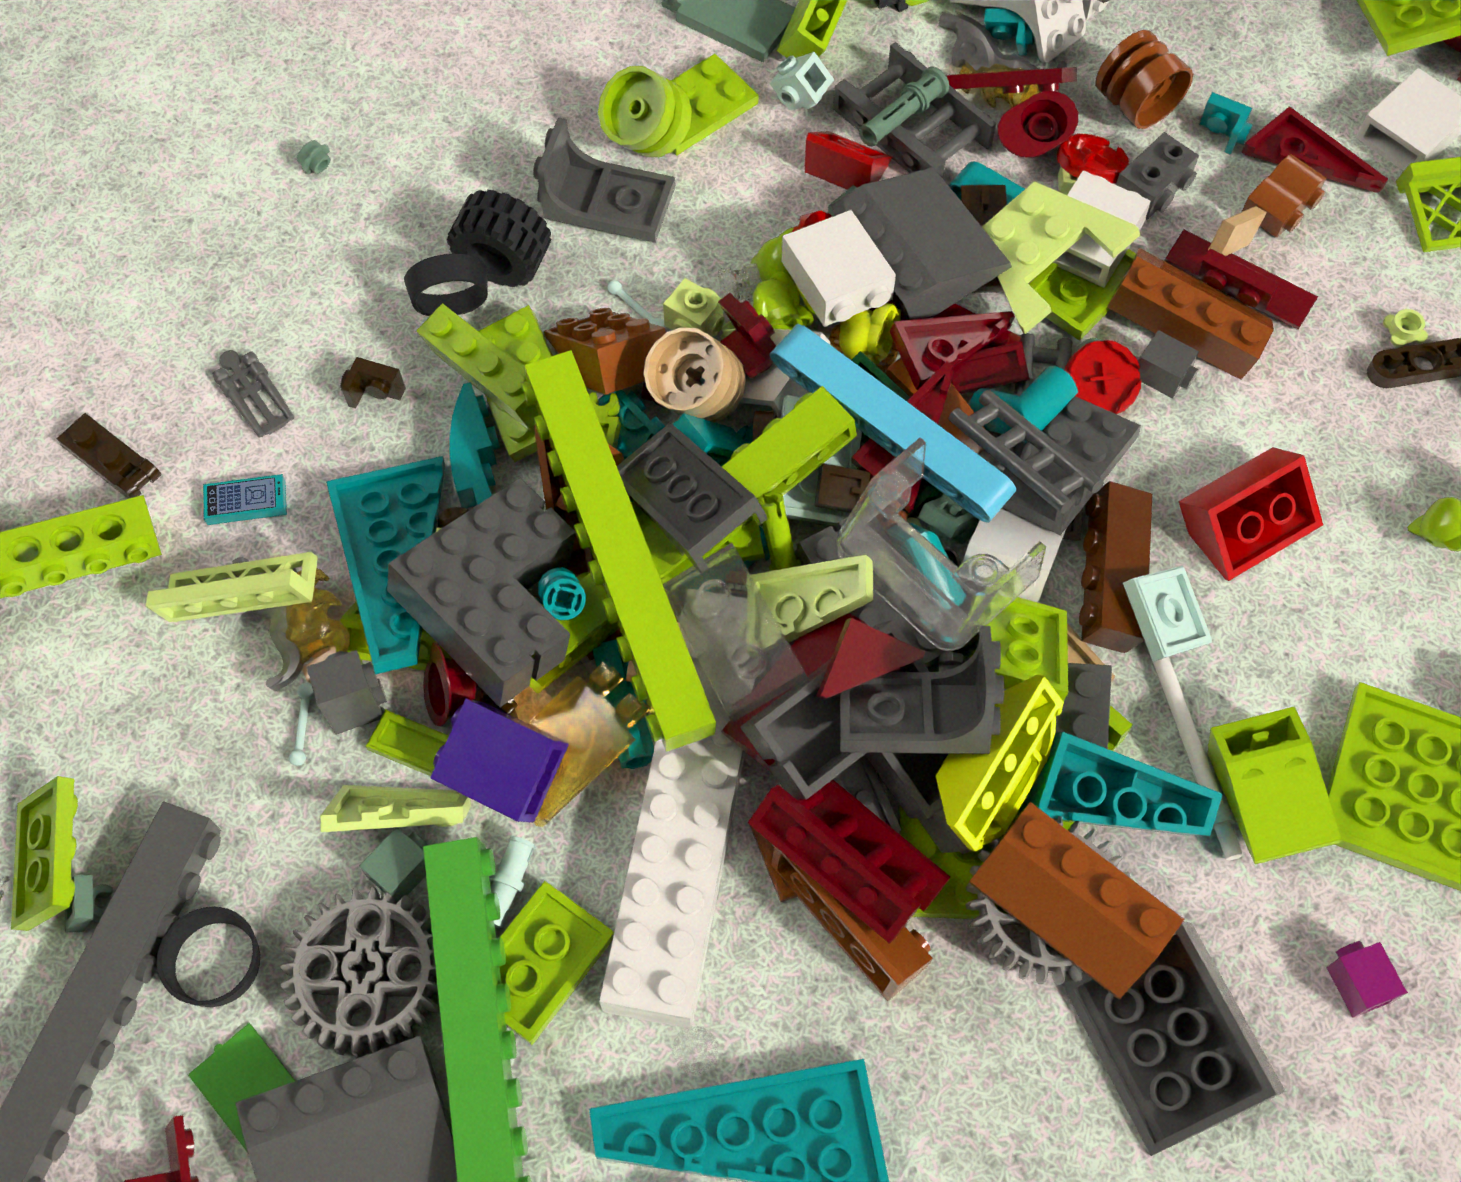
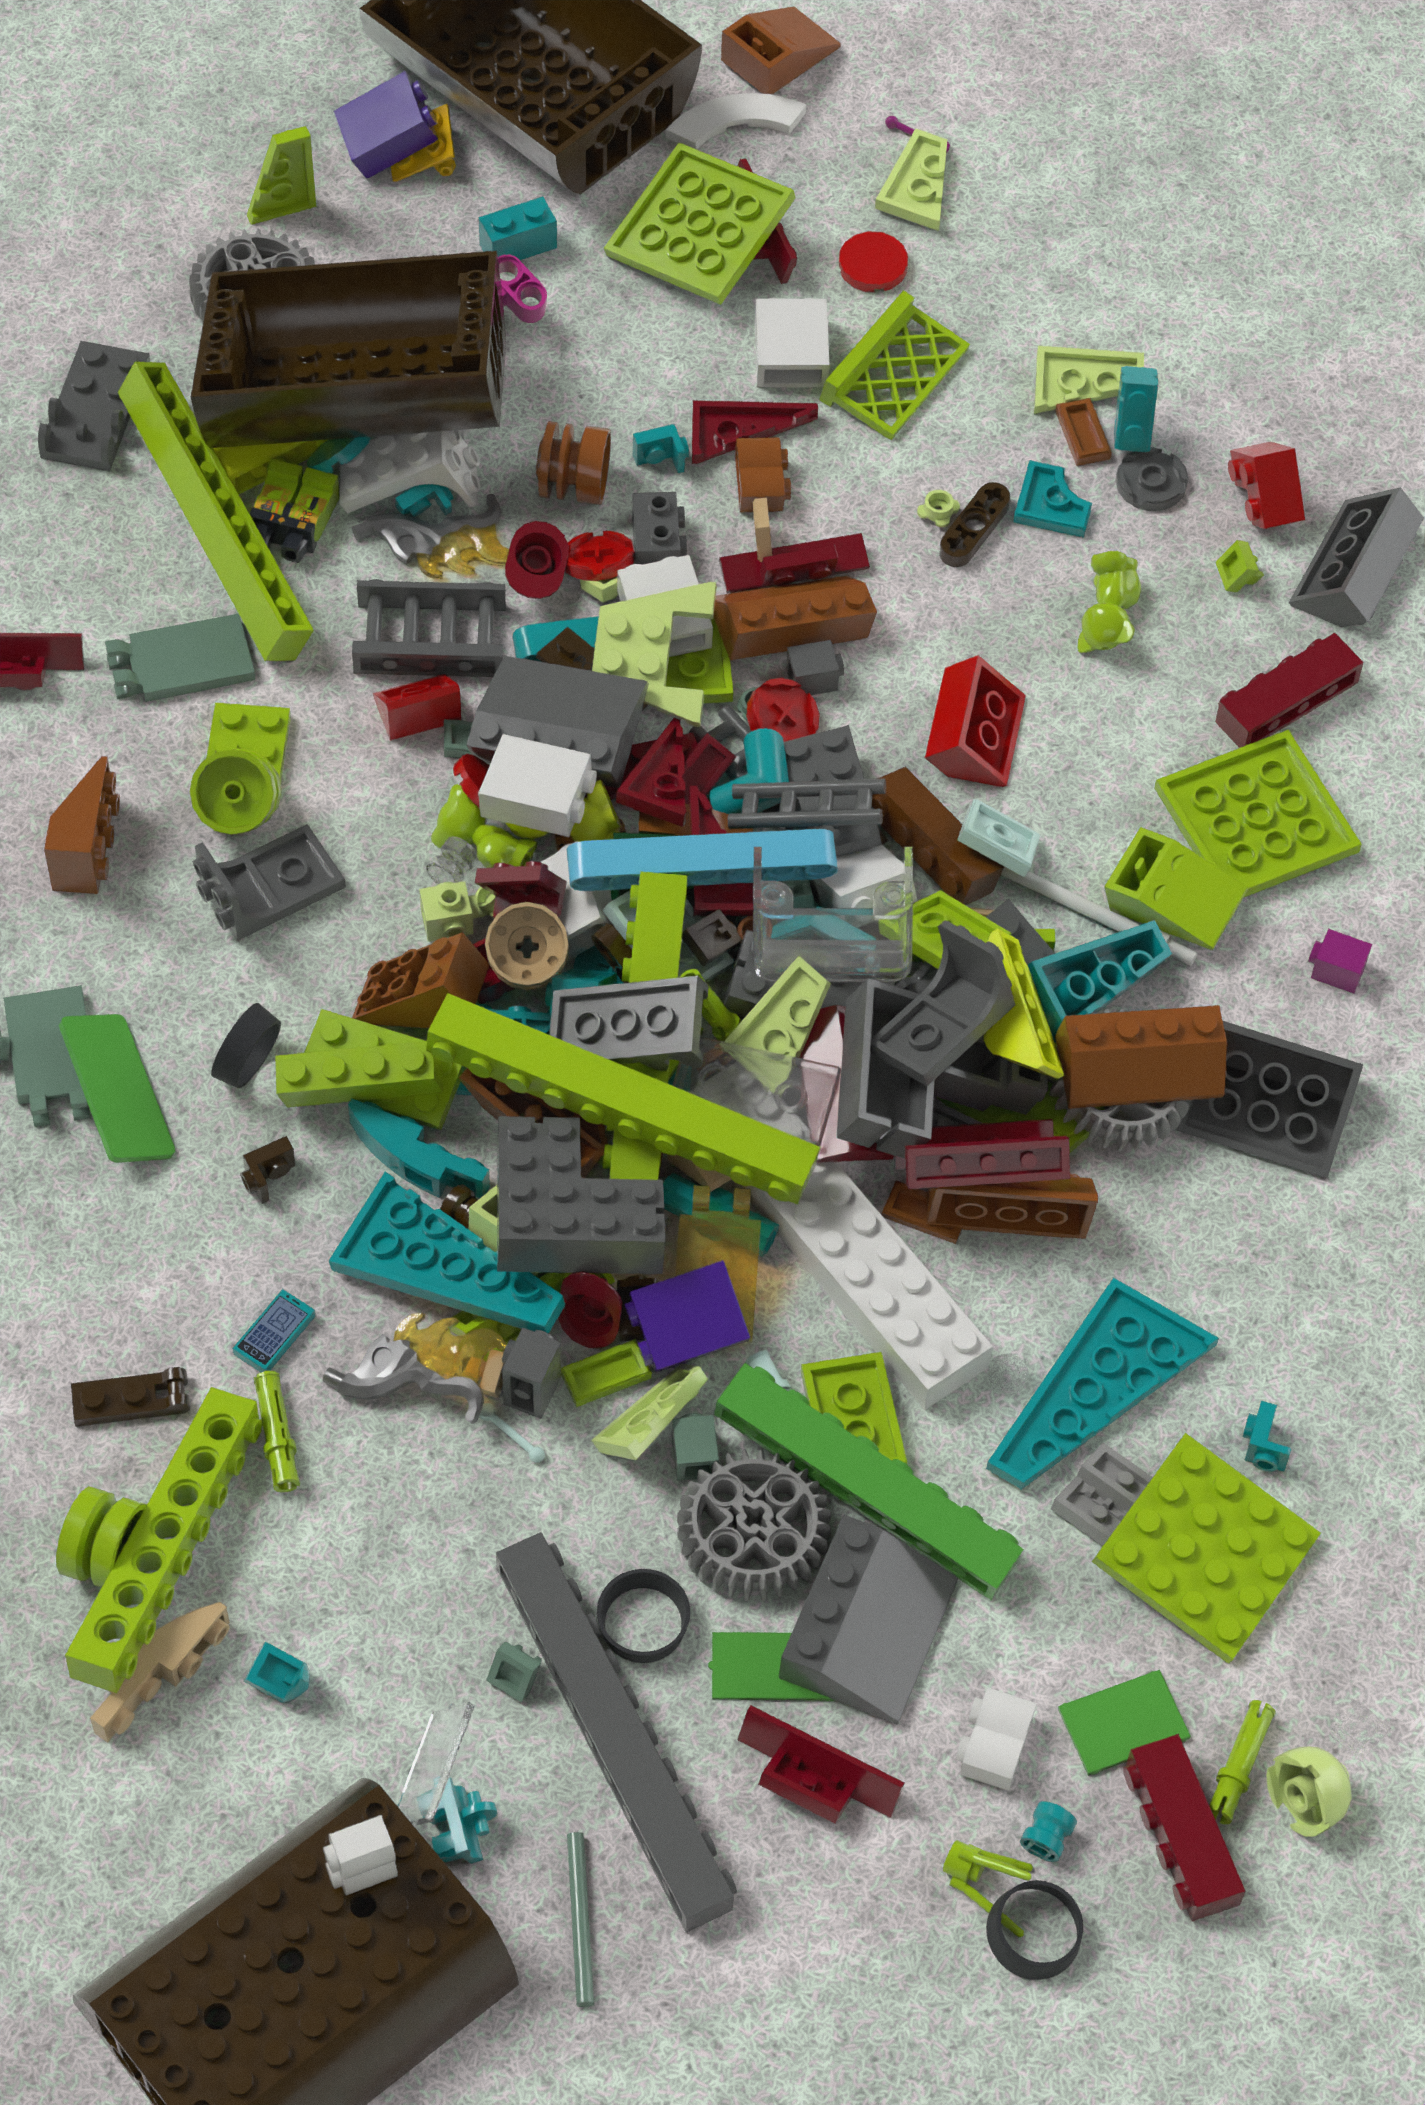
camera: 50 degrees left, 5 degrees down
(44, 854) = (453, 1660): lime plate -> none
(124, 603) = (279, 1445): none -> lime pin
(230, 361) = (127, 1252): dark grey piece -> none
(242, 593) = (368, 1388): yellowish green fence -> none
(344, 191) = (39, 1051): none -> sand green tile
(348, 246) = (116, 1088): none -> bright green piece
(502, 235) = (243, 972): black tyre -> none
(524, 59) = (82, 832): none -> dark orange slope
(557, 585) = (621, 1161): teal wheel -> none
(615, 288) = (355, 946): light aqua hinge -> none
(801, 81) = (318, 669): light aqua brick -> none
(862, 656) = (877, 1016): dark red tile -> none
(913, 100) = (428, 615): sand green pin -> none
(1015, 80) = (478, 538): dark red wing -> none

